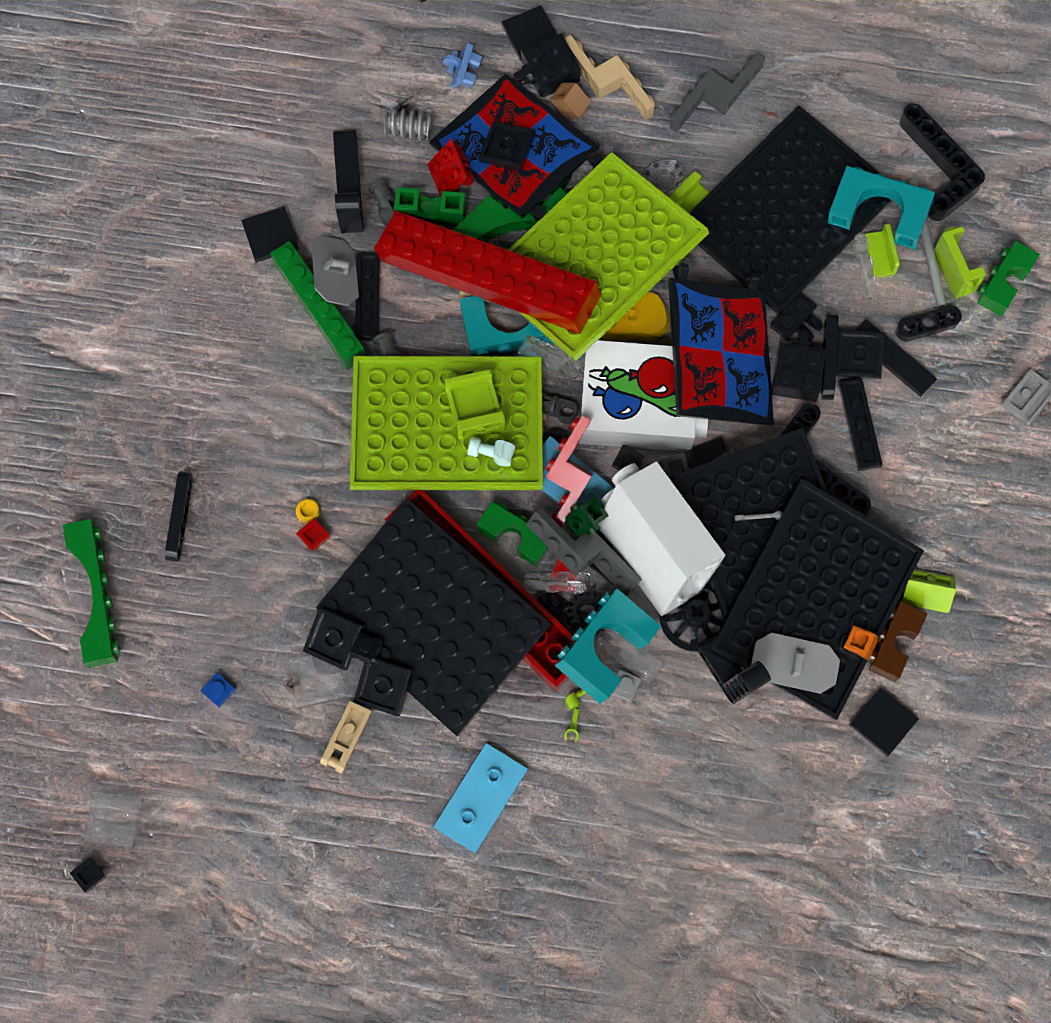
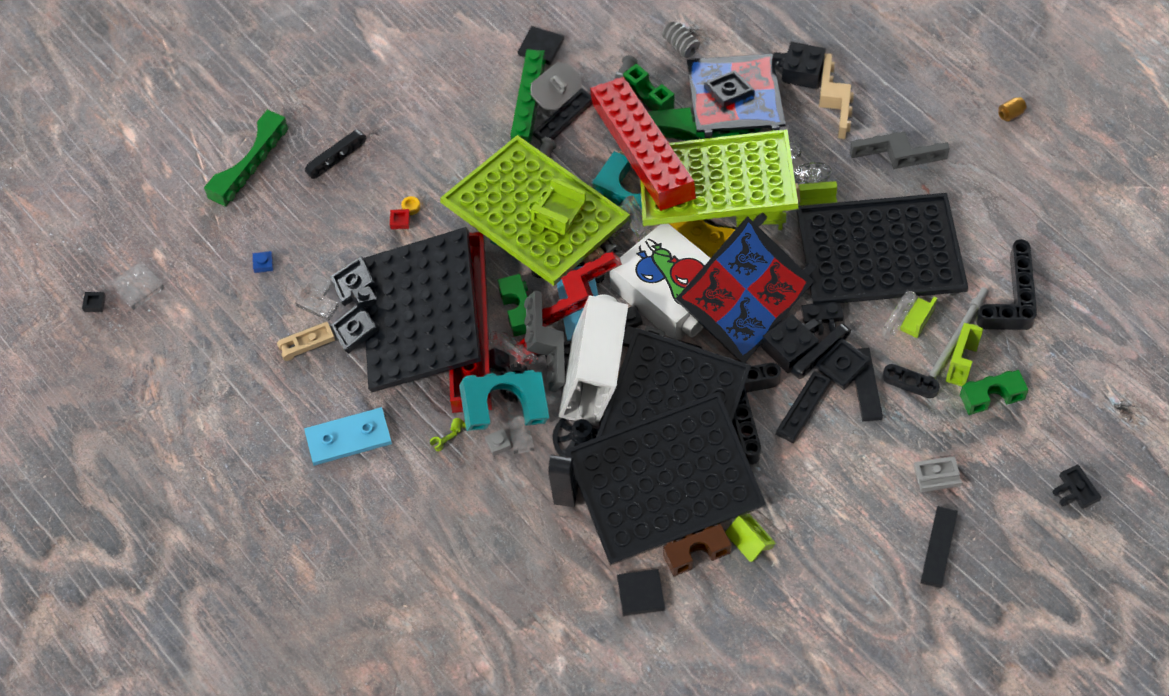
camera: 45 degrees right, 15 degrees down
(348, 195) = (601, 56): black beam -> none
(450, 168) = (684, 78): red hinge -> none
(466, 58) = (742, 34): medium blue hips -> none
(501, 451) = (546, 242): light aqua leg -> none
(528, 29) = (812, 35): black tile -> none
(570, 100) = (796, 91): medium nougat brick -> none
(586, 517) = (563, 318): dark green brick -> none
(777, 514) = (658, 387): light grey hinge -> none
(797, 662) = (612, 504): light grey shield -> none
(860, 185) = (938, 262): teal arch -> none
(861, 642) = (669, 527): orange slope -> none

